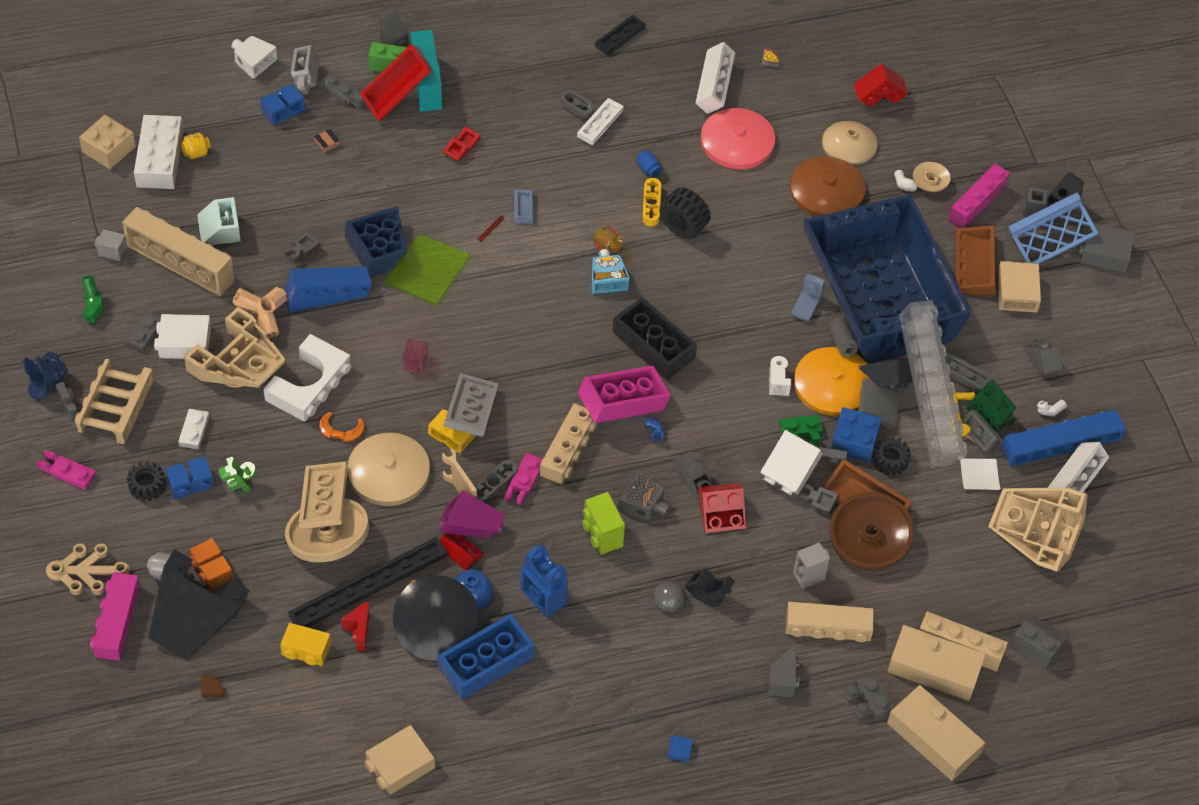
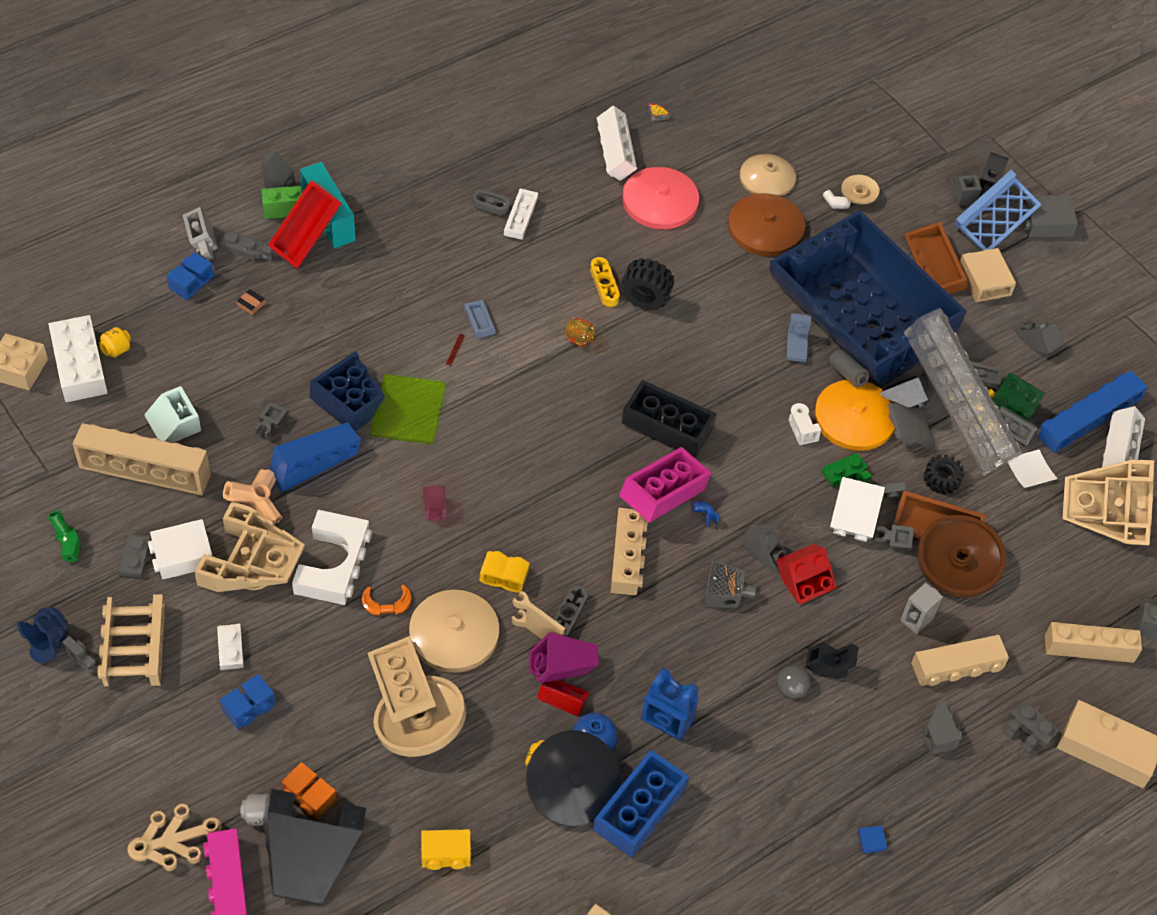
camera: 20 degrees left, 0 degrees up
(67, 470) = (108, 732): dark pink hinge -> none
(111, 245) = (63, 471): light grey brick -> none
(143, 471) = (199, 707): black tyre -> none
(237, 475) = (299, 684): bright green hips -> none
(254, 55) = (139, 232): white torso -> none
(358, 623) = (492, 807): red slope -> none
(368, 583) = (483, 762): black plate -> none
(462, 145) = (391, 271): red slope -> none
(471, 405) = (516, 539): light grey plate -> none
(524, 478) = (597, 598): dark pink hinge -> none
(603, 523) = (701, 624): lime brick -> none
(608, 273) = (594, 365): torso -> none
(620, 35) = (503, 123): black tile -> none
(649, 163) = (587, 244): blue brick -> none
(856, 434) = (902, 461): blue brick -> none
(880, 83) = (776, 111): red brick -> none
(936, 662) = (1079, 671): tan brick -> none
(979, 197) = (912, 197): dark pink brick -> none
(1045, 409) = (1070, 387): white arm -> none

